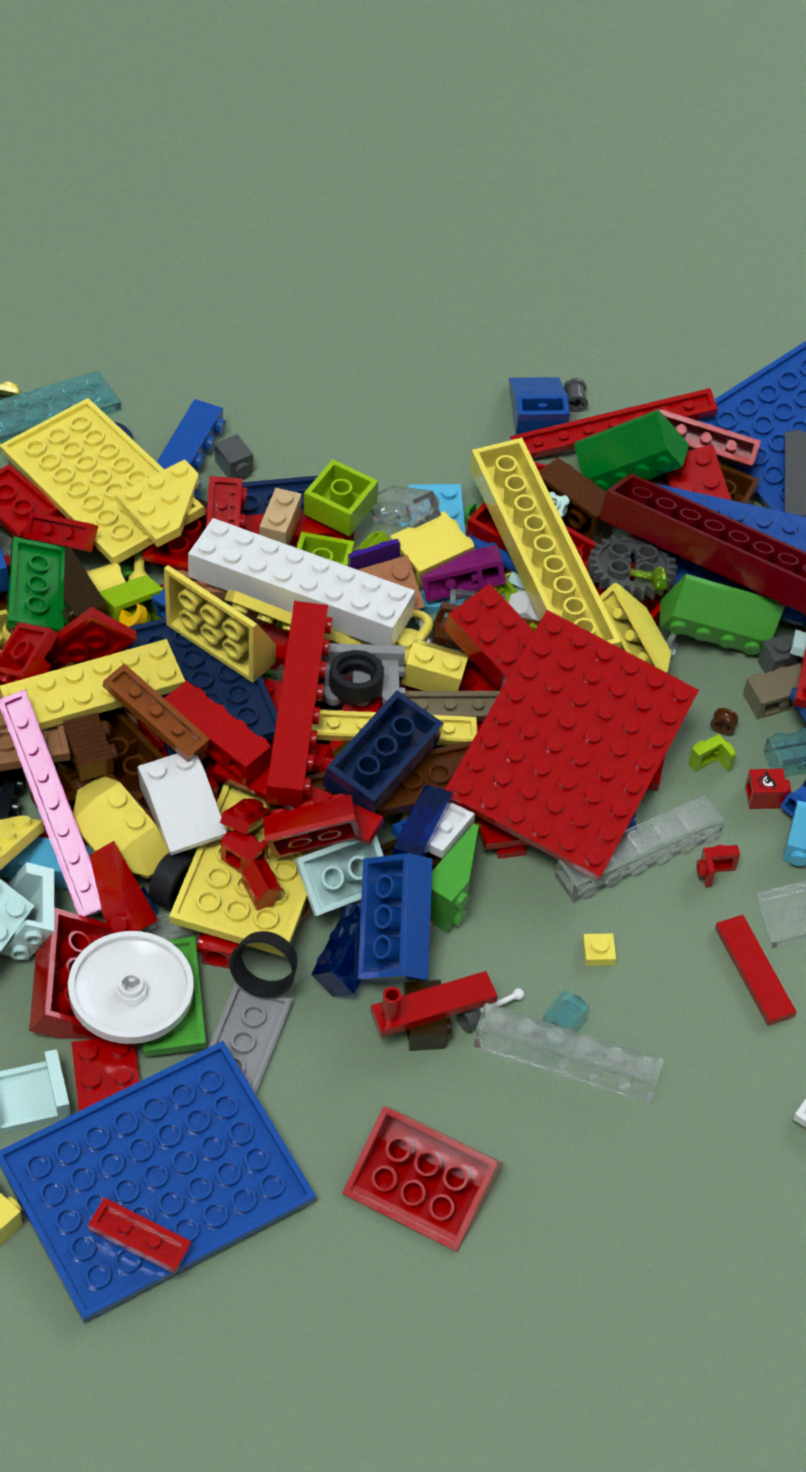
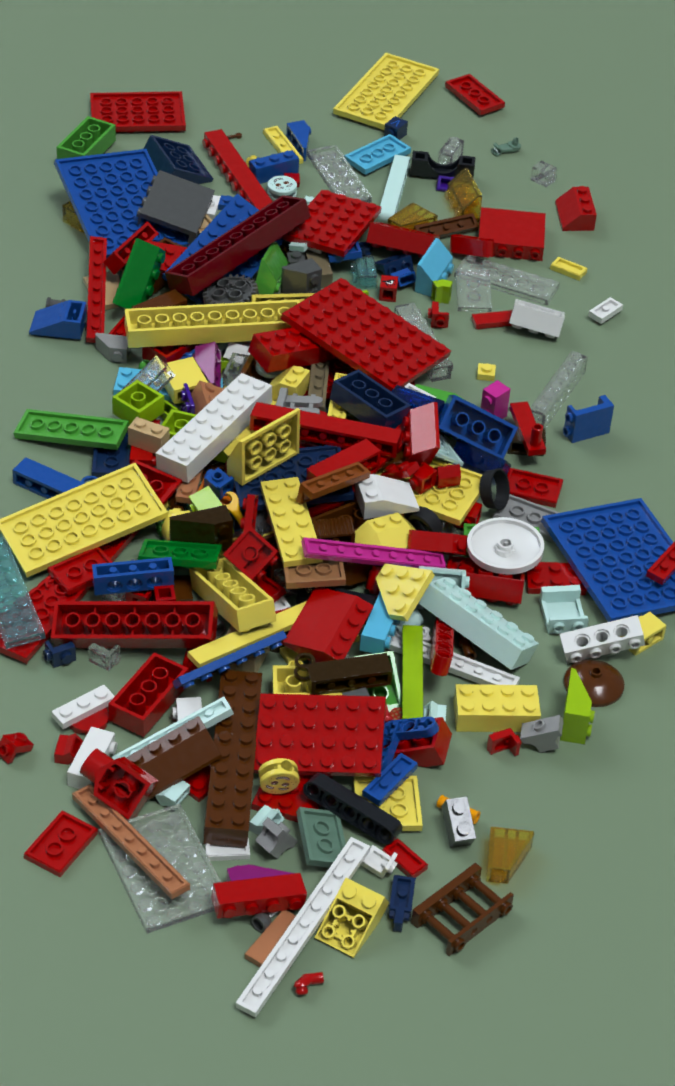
camera: 80 degrees left, 10 degrees down
(60, 531) = (132, 538): red plate -> none
(161, 501) = (126, 481): light yellow plate -> none
(226, 500) = (134, 449): red bracket -> none
(234, 457) = (68, 462): dark grey brick -> none
(297, 444) = (71, 429): none -> bright green plate
(320, 1037) = (535, 487): none -> red tile
(358, 661) = (306, 398): black tyre -> none
(422, 1178) = (630, 456): red slope -> none
(494, 951) = (496, 399): none -> dark pink brick
(498, 1120) = (588, 421): none -> blue panel
(567, 1012) = (531, 387): clear light blue brick -> none
(658, 576) = (251, 277): clear neon green hand -> none
(699, 656) = (301, 277): none -> dark grey slope
(755, 1006) = (537, 318): none -> white slope
(781, 862) = (441, 291): none -> lime piece

